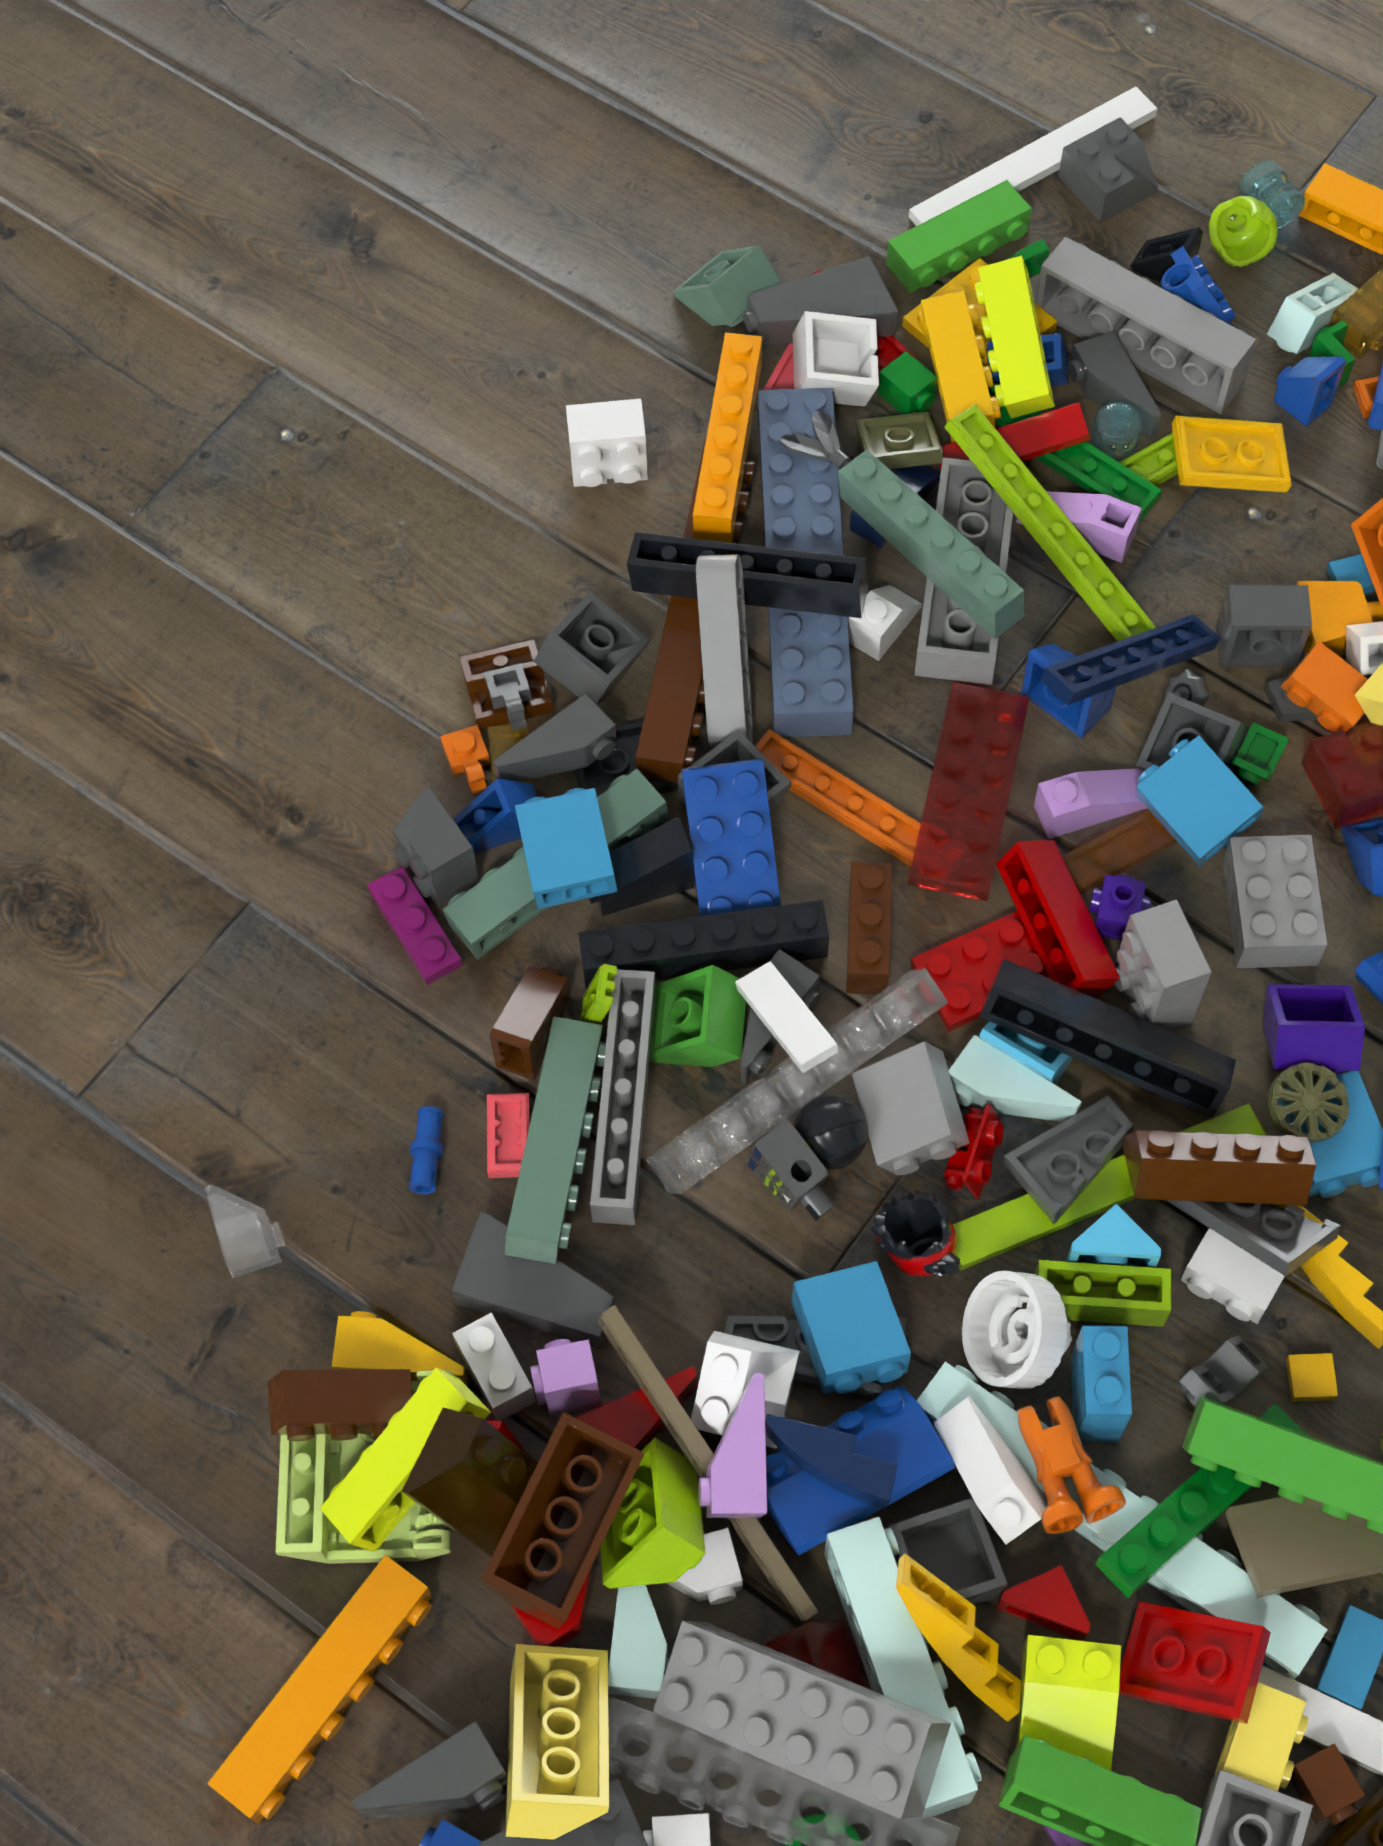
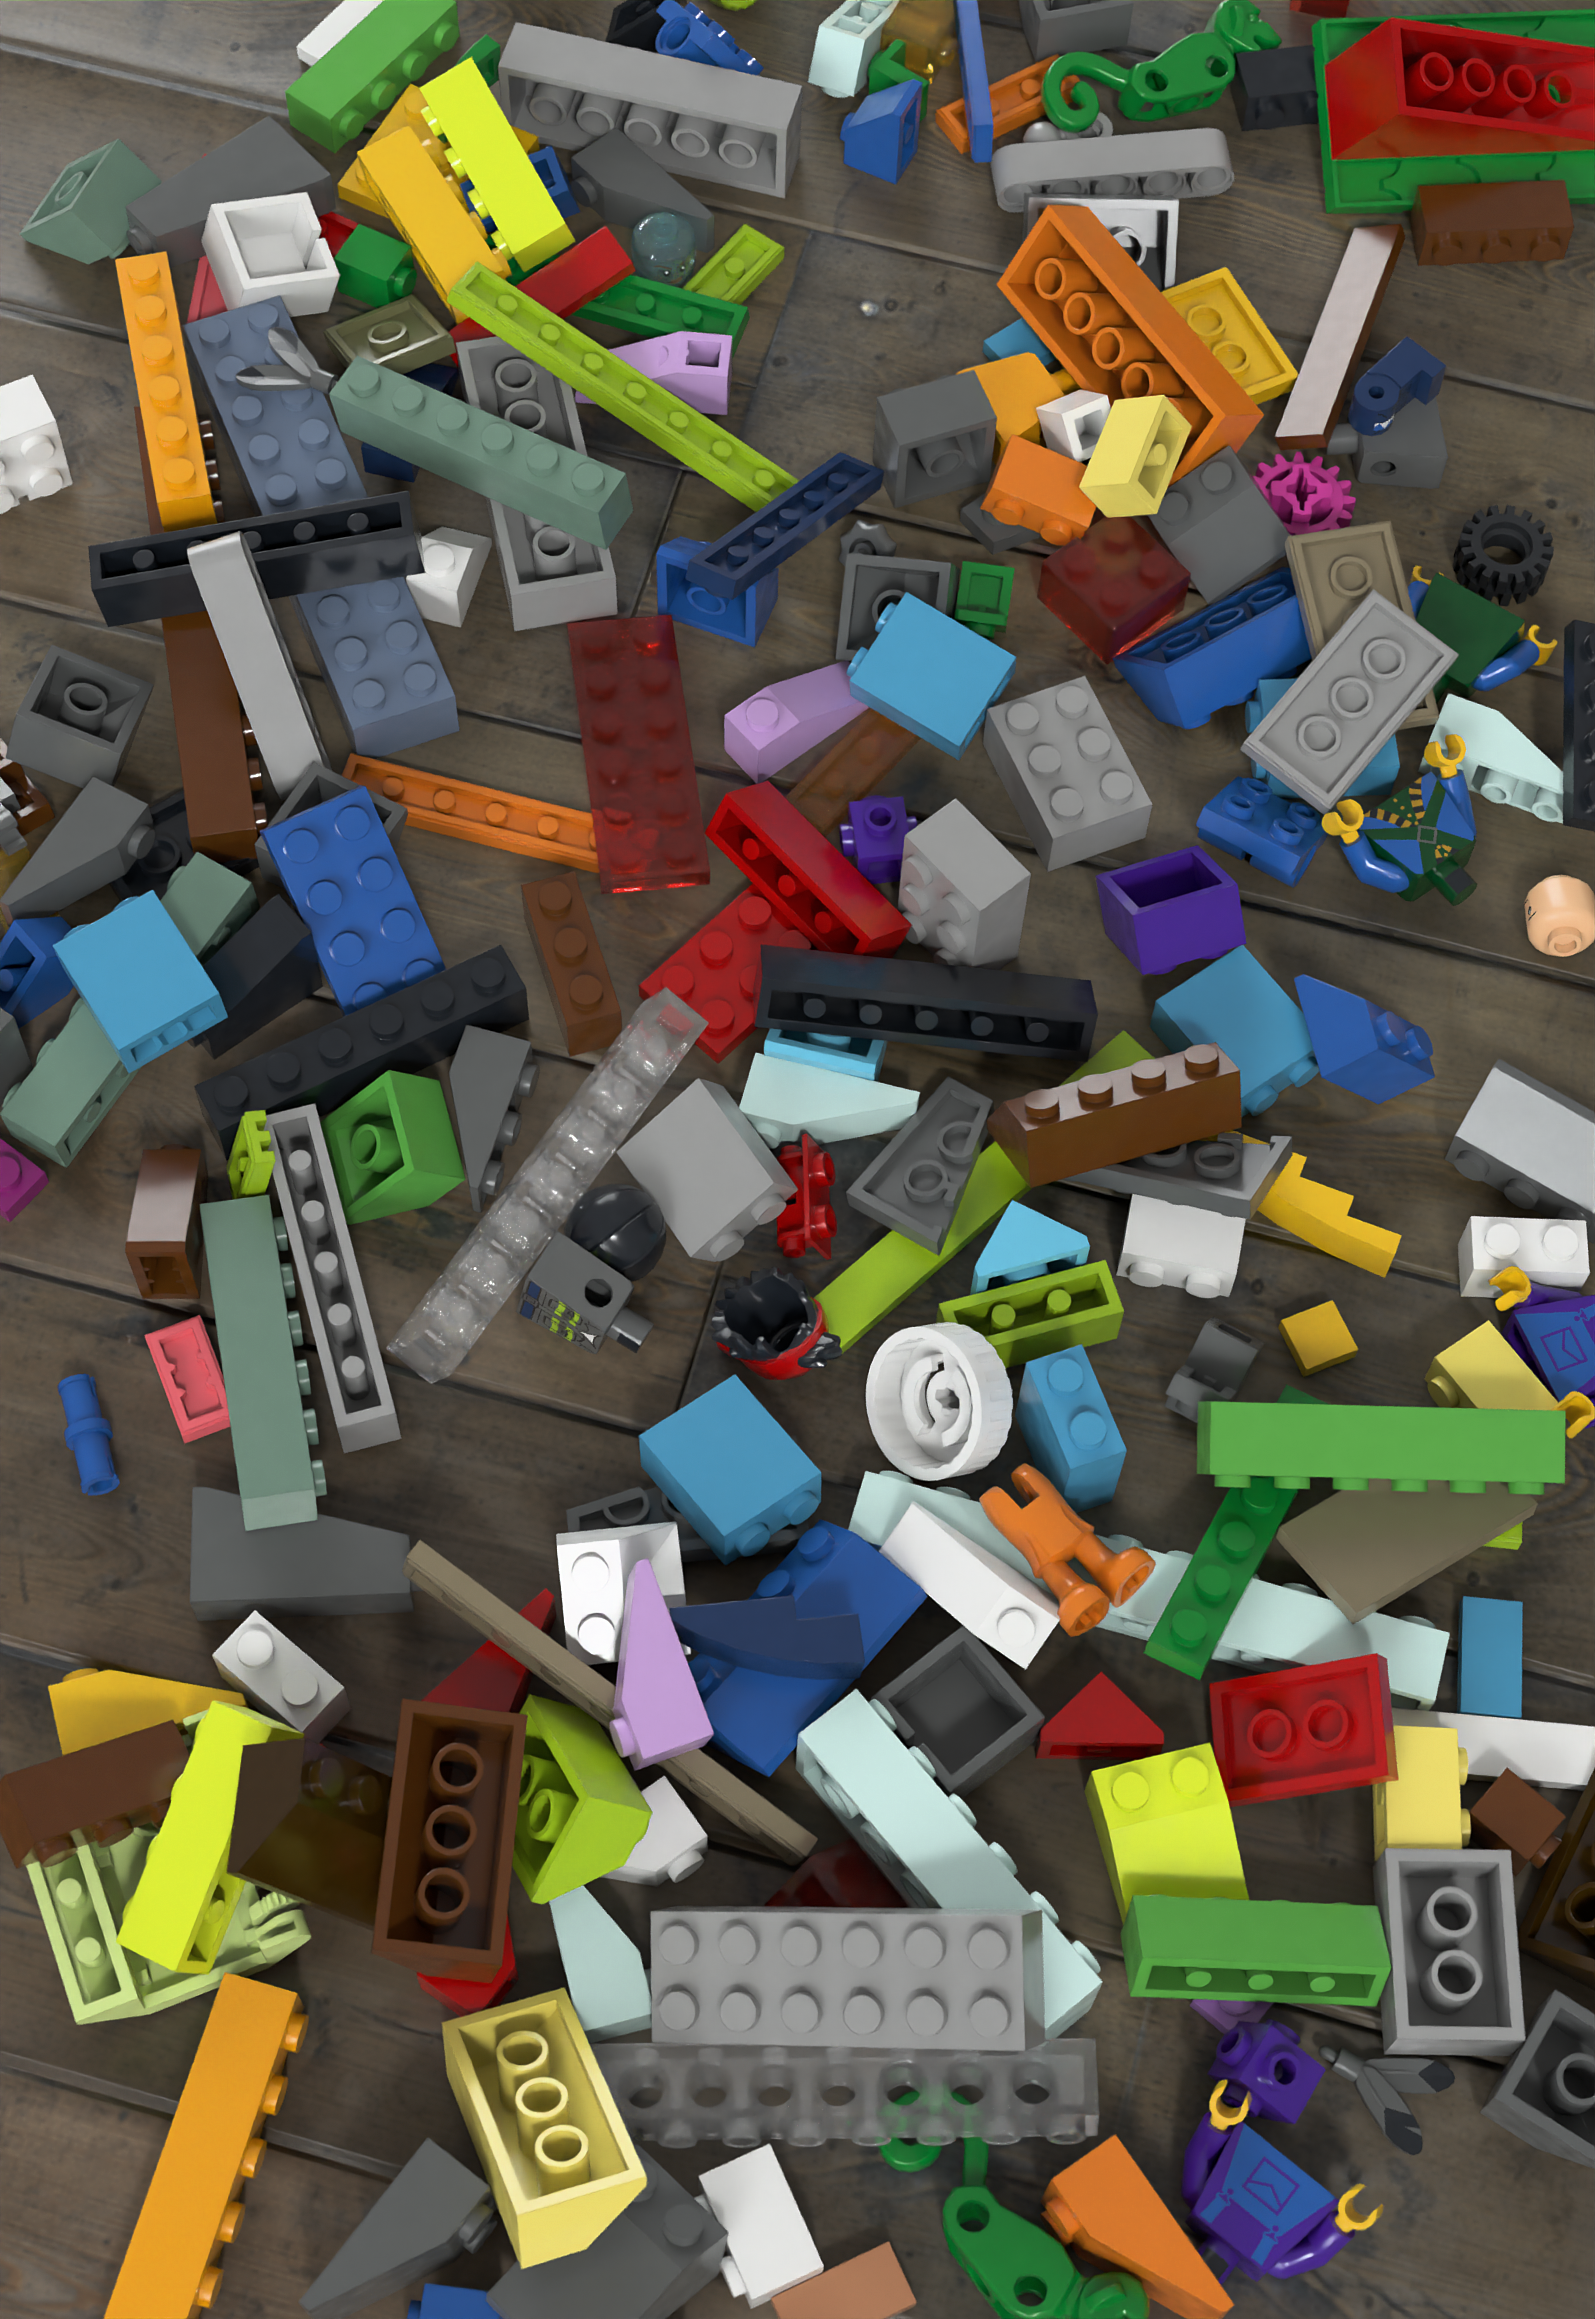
camera: 25 degrees left, 0 degrees up
(566, 1377) = (385, 1659): lavender brick -> none
(787, 1017) = (509, 1104): white tile -> none
(950, 1628) = (996, 1797): yellow slope -> none
(1231, 454) = (816, 242): yellow tile -> none
(1308, 1102) = (1199, 1001): olive wheel -> none

